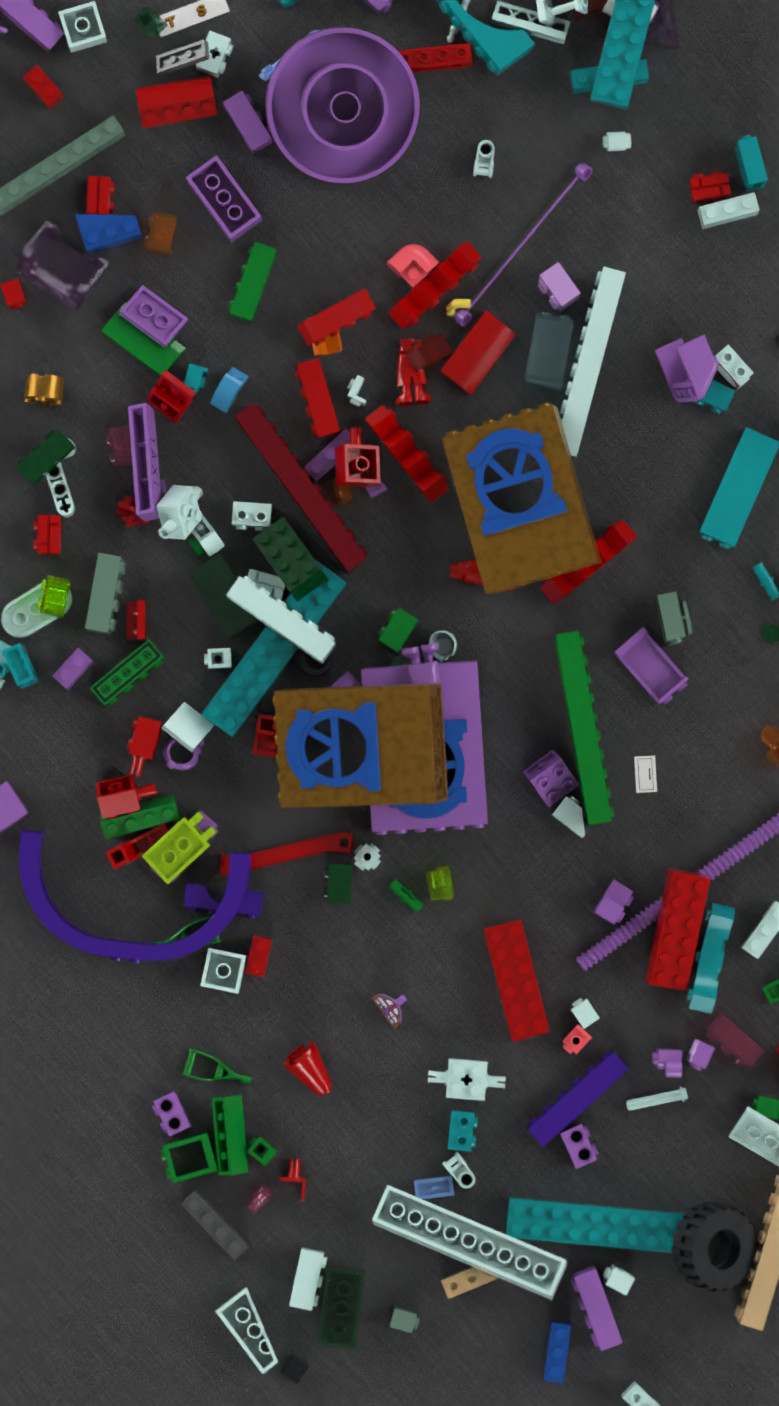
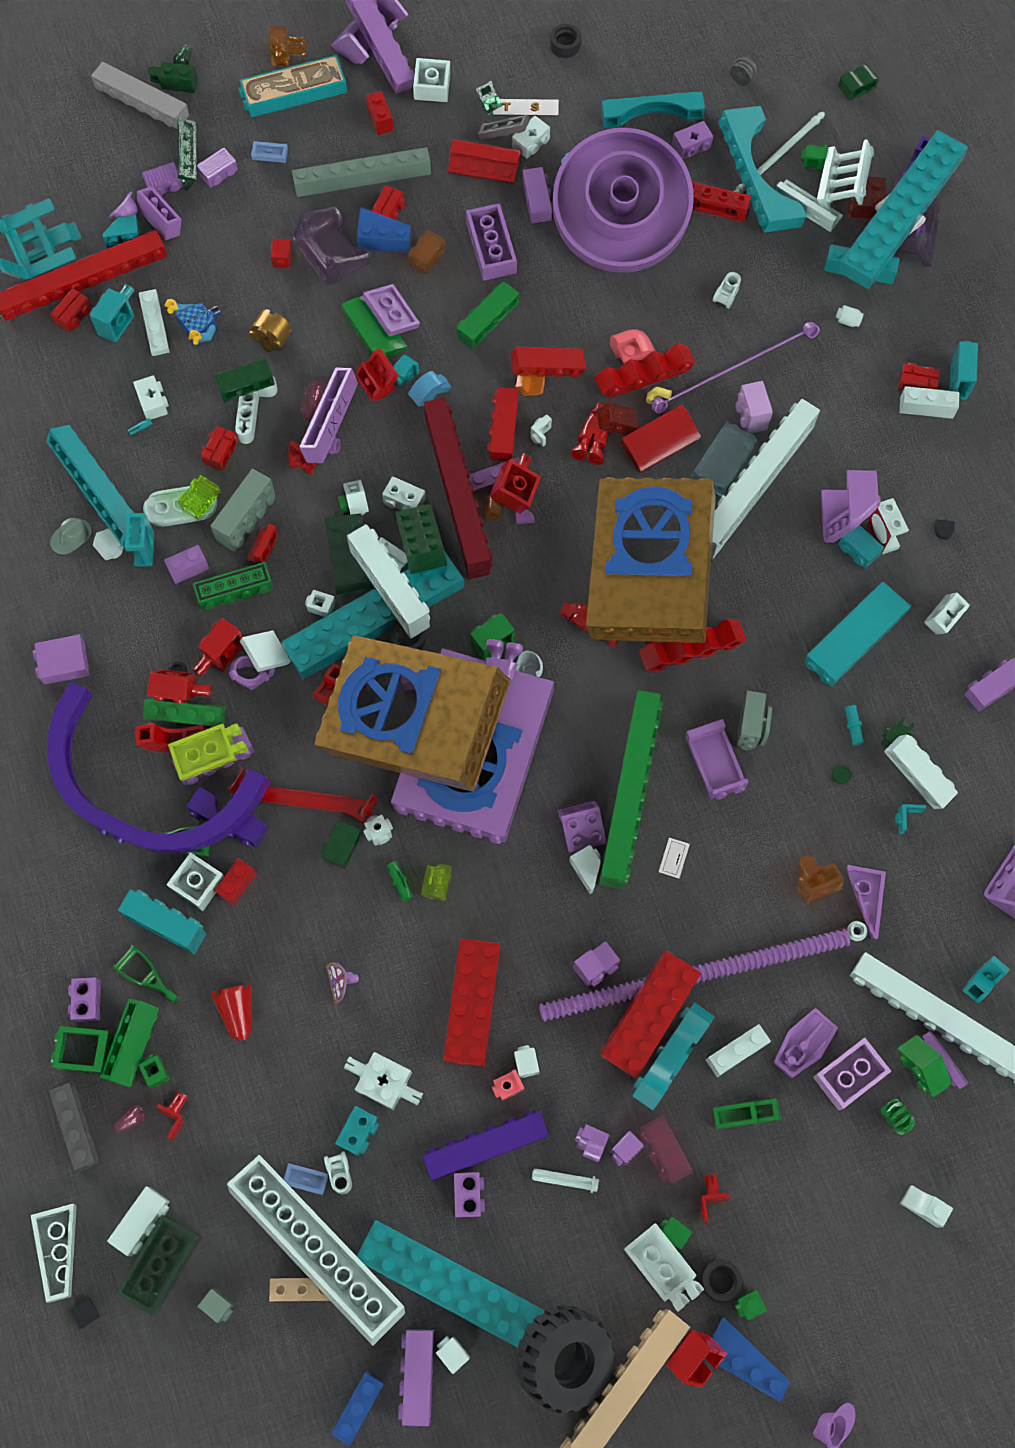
camera: 25 degrees right, 15 degrees down
(179, 511) = (339, 464): light aqua brick -> none
(210, 1019) = (161, 921): none -> teal brick
(411, 459) = (561, 490): red brick -> none

